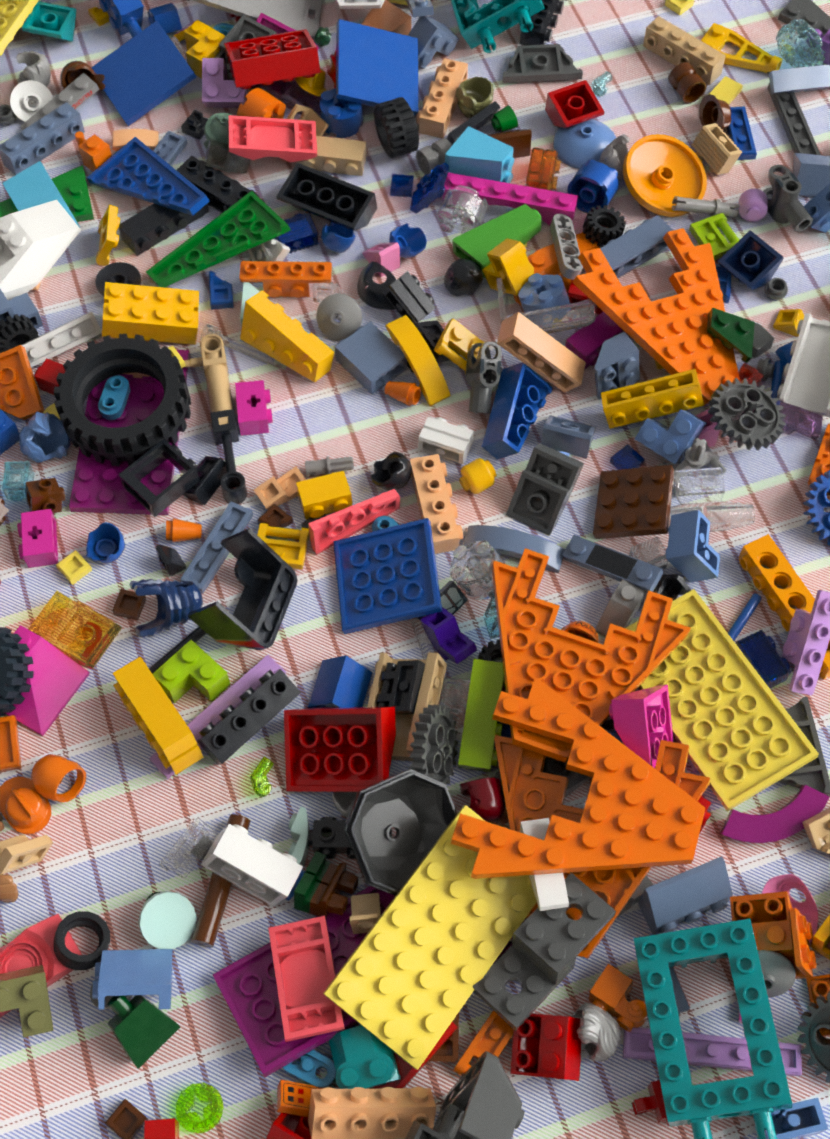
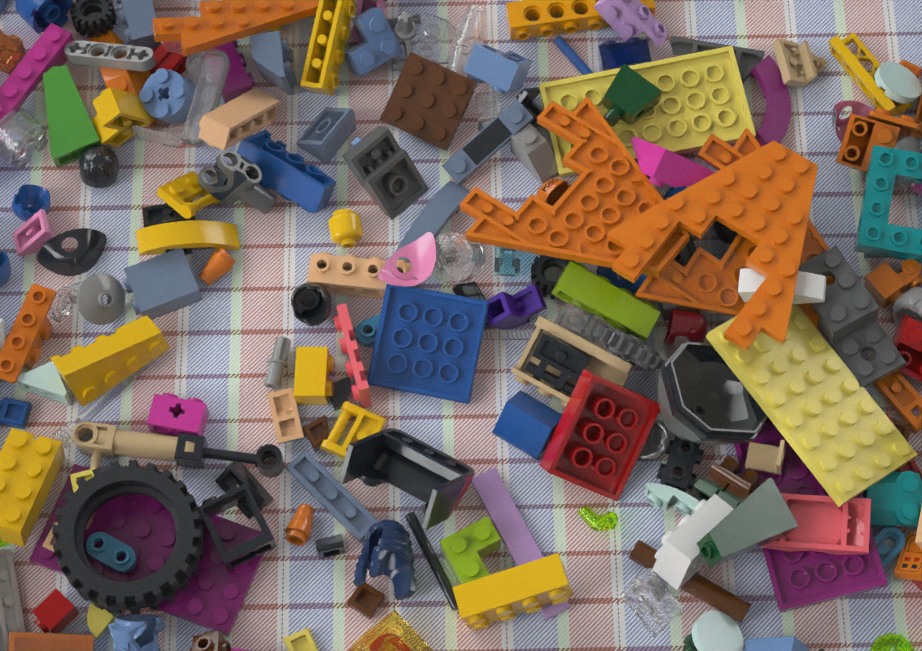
camera: 70 degrees left, 5 degrees up
(105, 543) = (291, 603): blue hair -> none
(248, 716) = (535, 509): black brick -> none
(272, 904) = (751, 524): none -> slope
(409, 298) = (110, 223): brick -> none
(433, 524) = (422, 258): none -> bright pink piece
(445, 439) = (291, 244): white brick -> none
(627, 458) = (374, 93): clear blue tile -> none
(686, 896) = (827, 199): sand blue slope -> none
(710, 669) = (629, 97): none -> dark green torso

